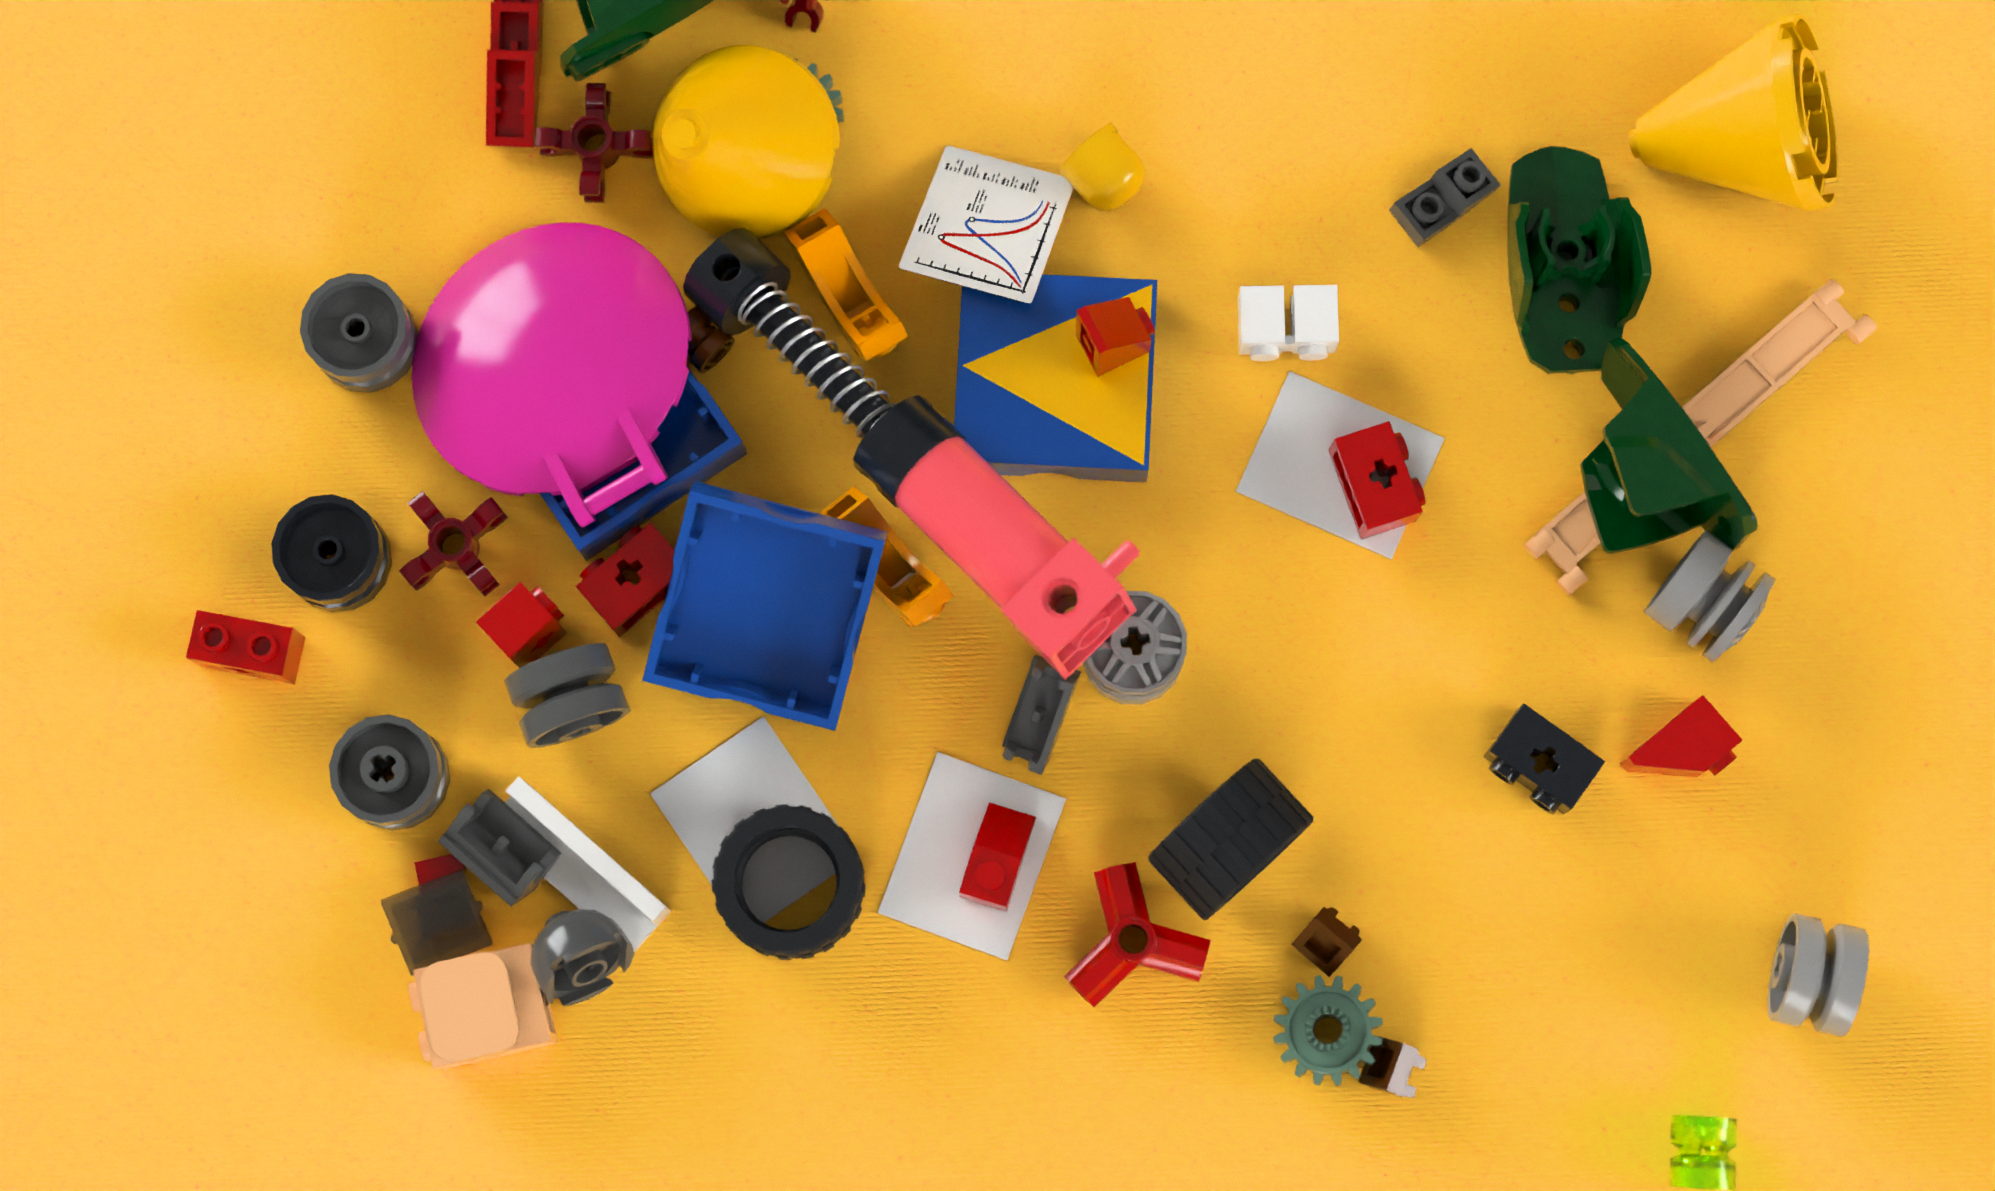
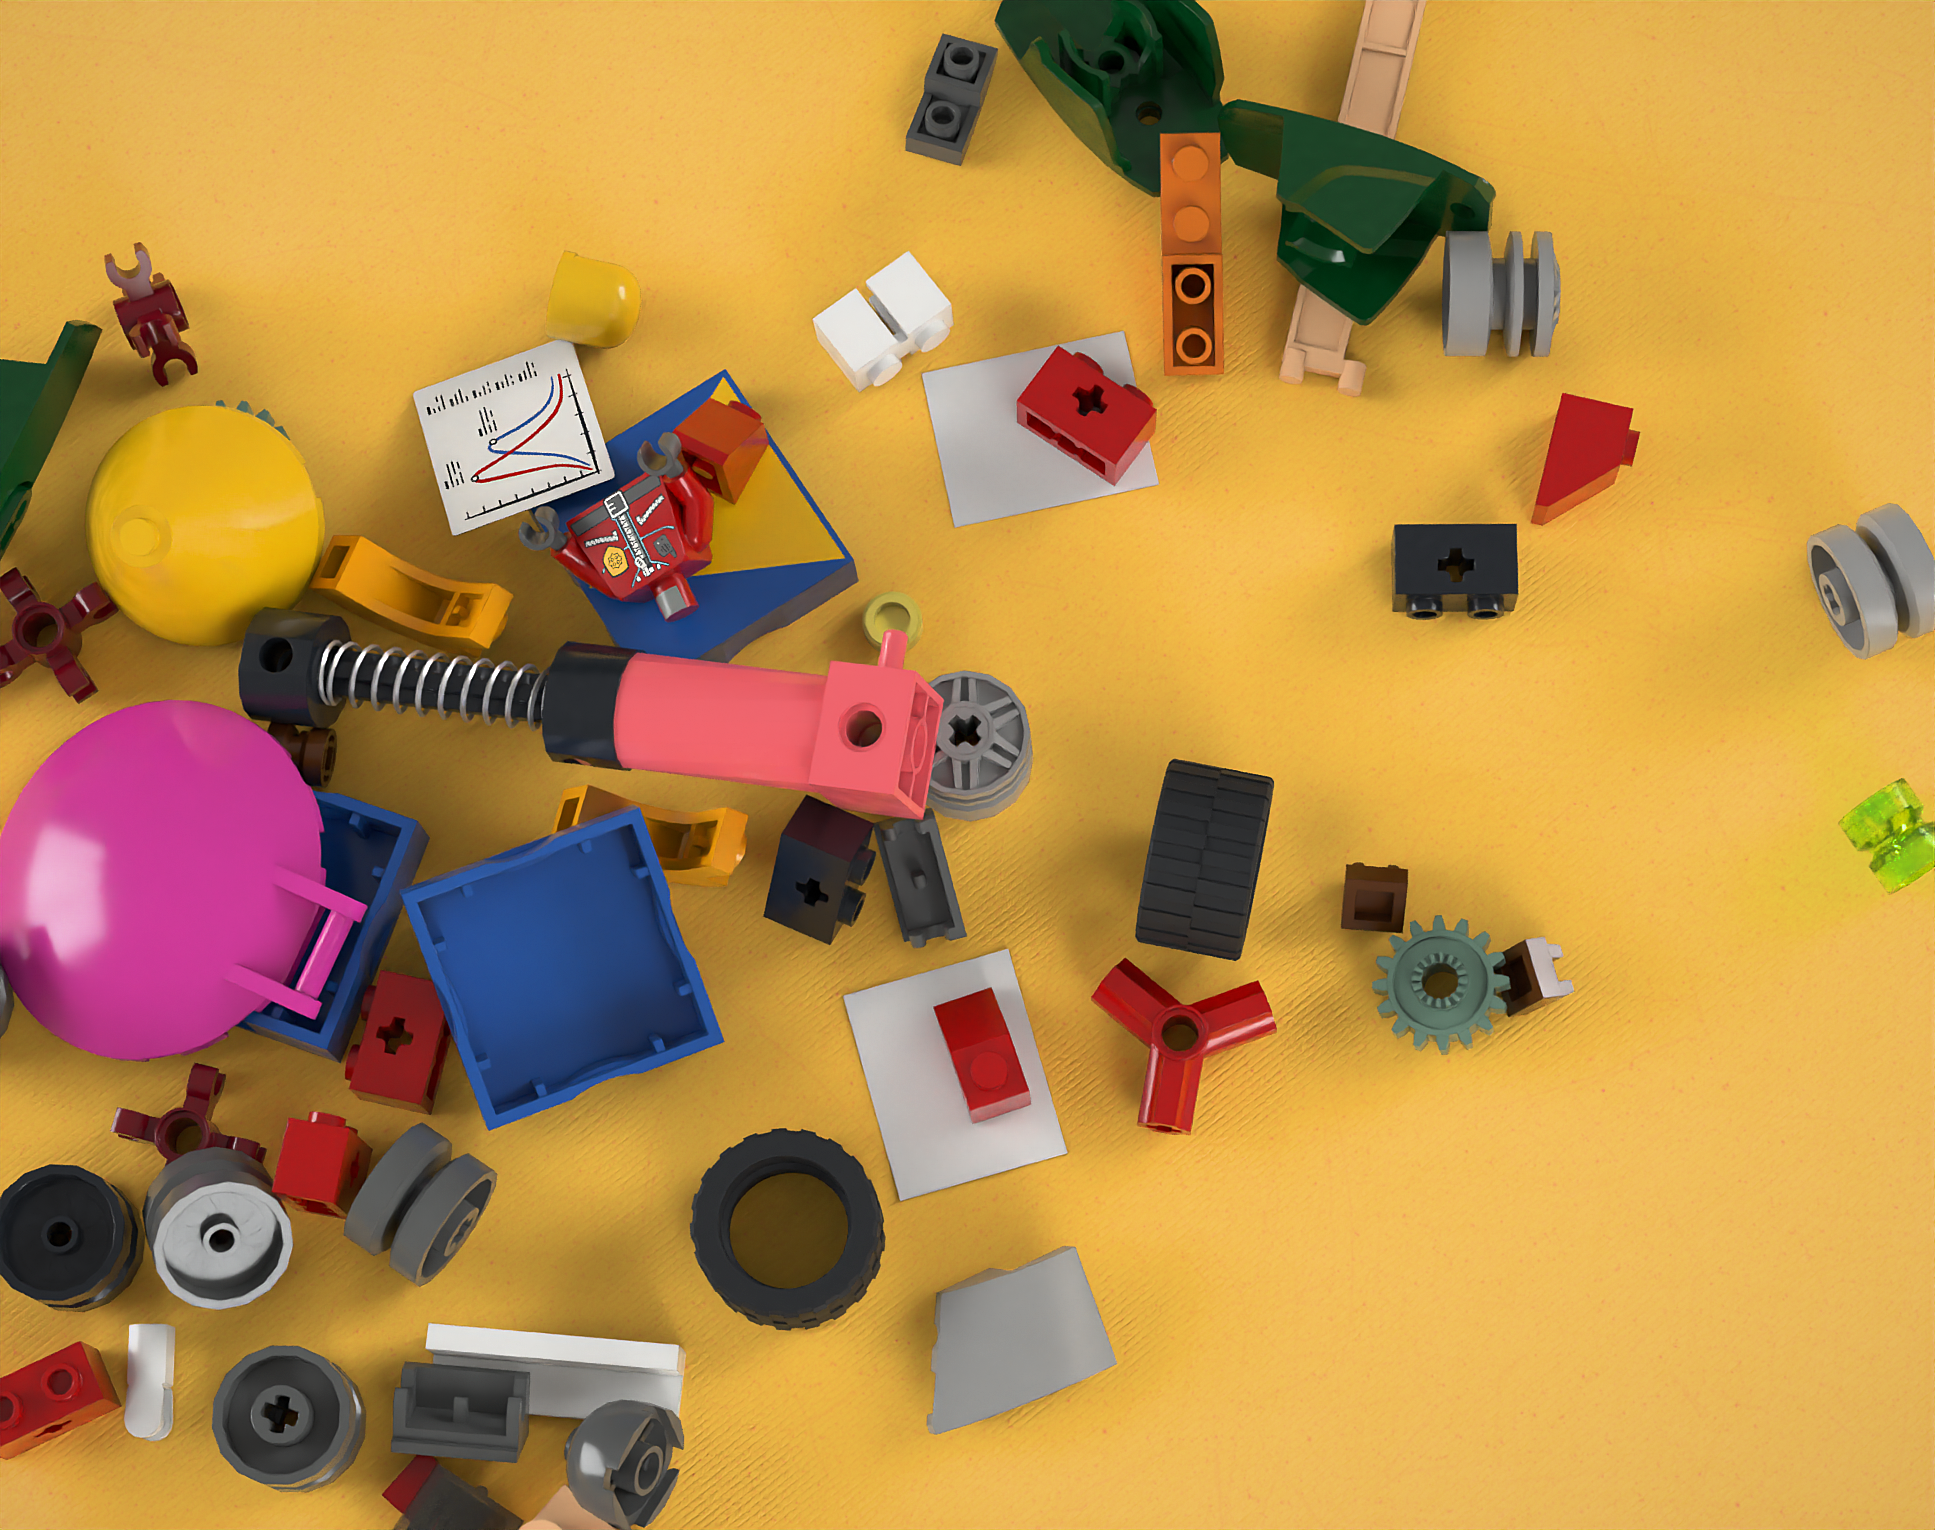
camera: 30 degrees left, 5 degrees down
(321, 682) = (150, 1381): none -> white bar
(428, 617) = (217, 1228): none -> wheel
(730, 785) = (650, 1190): white sticker -> none
(882, 1058) = (1014, 1339): none -> light grey slope
(977, 663) = (819, 870): none -> black brick
(1014, 357) = (640, 537): none -> torso
(1147, 526) = (895, 612): none -> light yellow tile
(1525, 420) = (1191, 253): none -> orange slope

